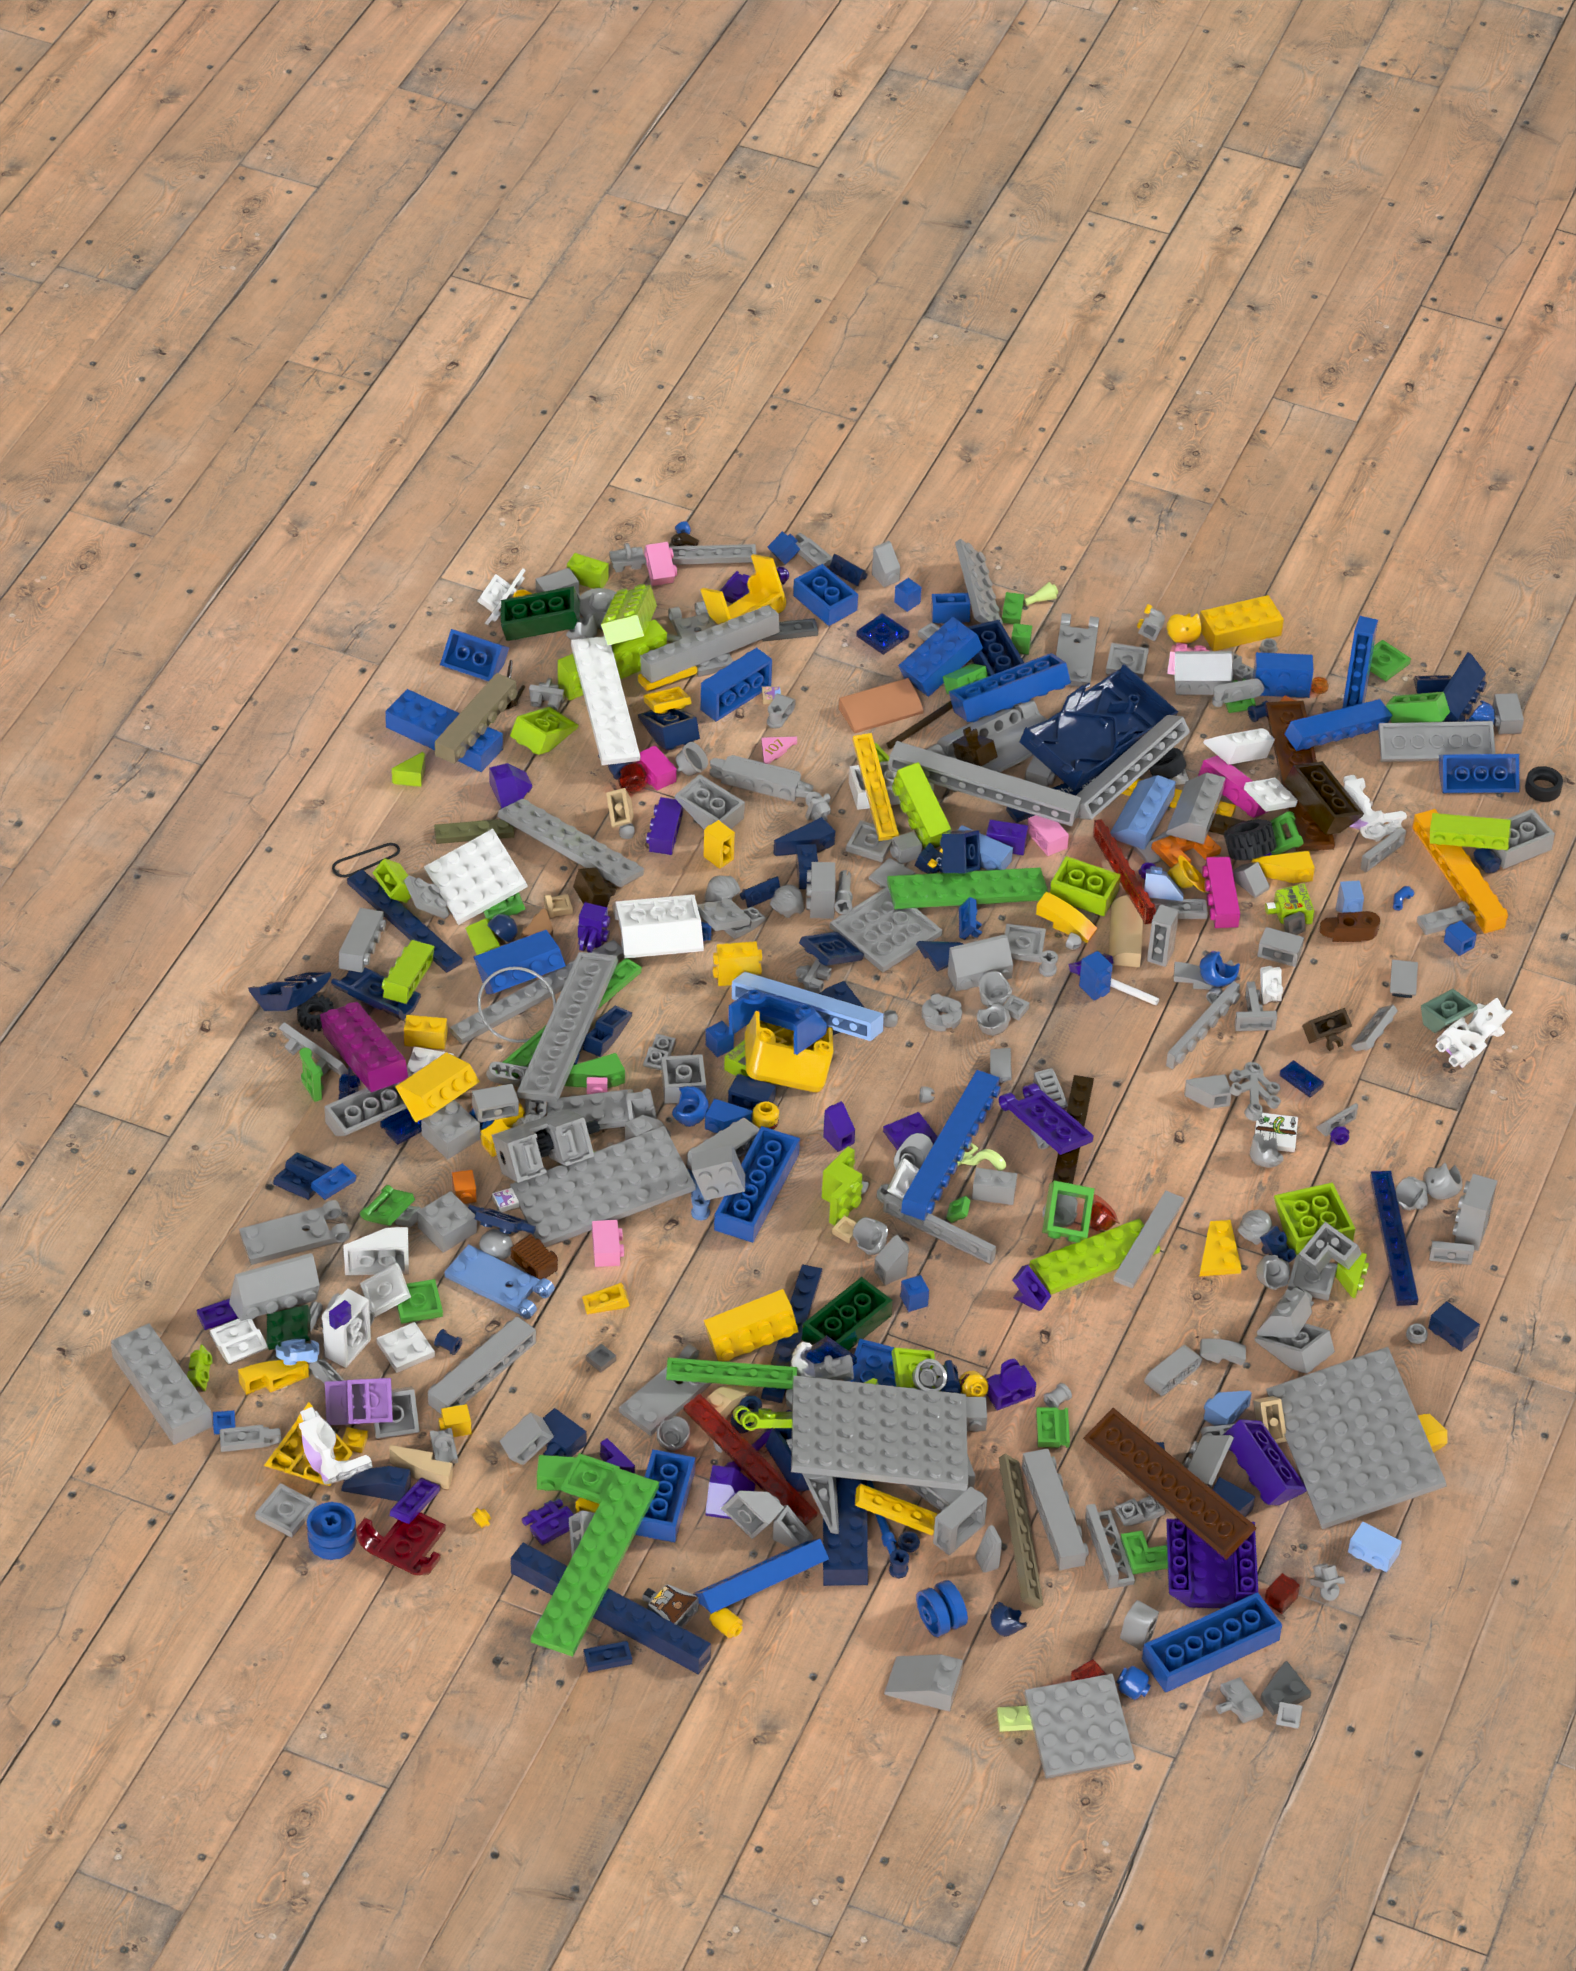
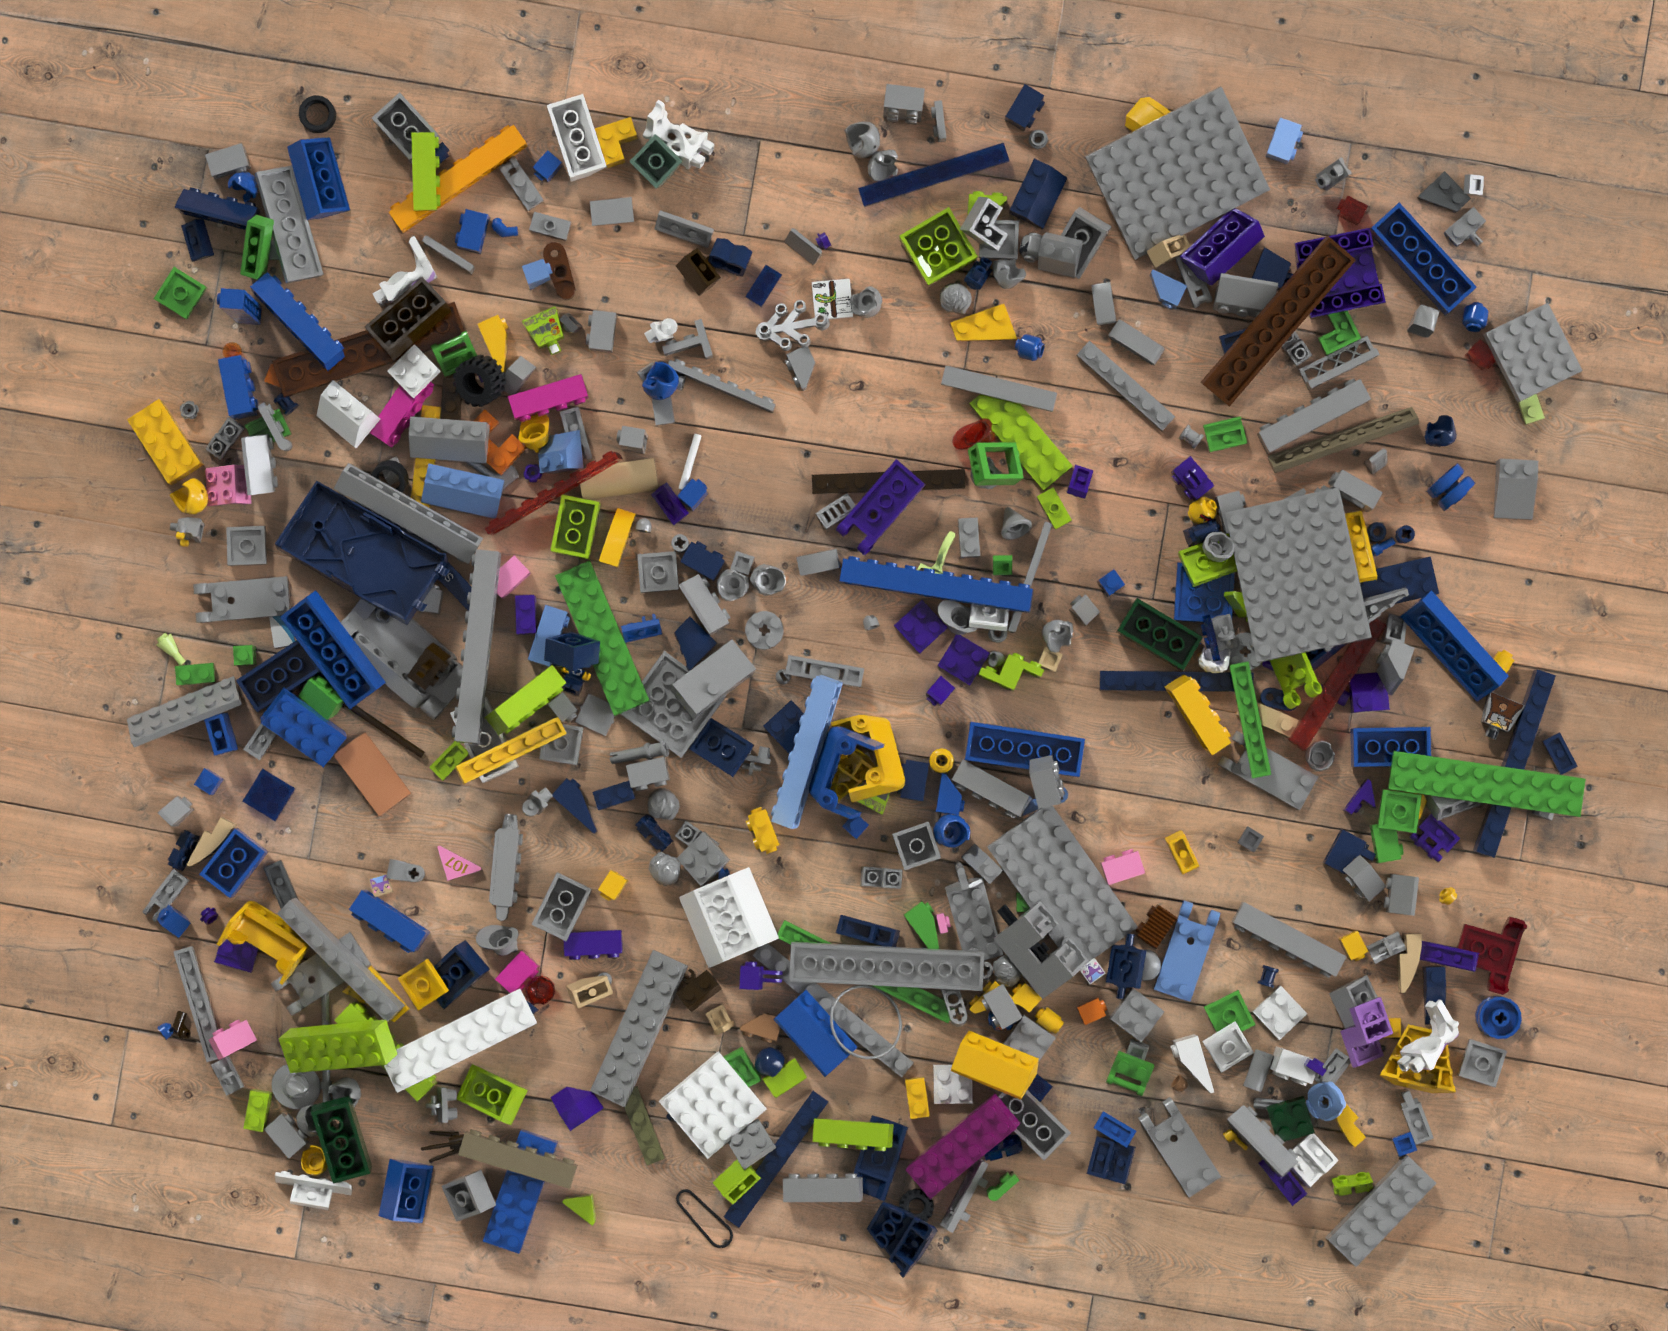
camera: 100 degrees left, 40 degrees up
(454, 688) = (468, 1195): none -> light grey brick
(466, 1152) = (1049, 1020): none -> yellow brick
(496, 1474) = (1401, 894): none -> light grey slope
(855, 583) = (211, 842): none -> tan slope
(871, 1161) = (963, 659): none -> dark purple plate
(886, 1043) = (800, 667): none -> light grey hinge
(902, 953) = (712, 679): none -> light grey brick
(998, 1226) = (1014, 525): none -> light grey hat
(1005, 1267) = (1054, 508): none -> lime plate
(1026, 976) = (703, 561): none -> dark blue brick
(1127, 1355) = (1125, 386): none -> light grey plate
(1188, 1277) = (1029, 347): none -> blue head
(1337, 1055) = (730, 257): none -> dark blue brick
(1356, 1318) = (1038, 194): none -> dark blue slope
(1398, 932) = (550, 226): none -> light grey plate
(1403, 871) = (472, 231): none -> blue brick
(1476, 986) = (612, 136): none -> yellow brick
(1484, 955) = (576, 137): none -> white slope

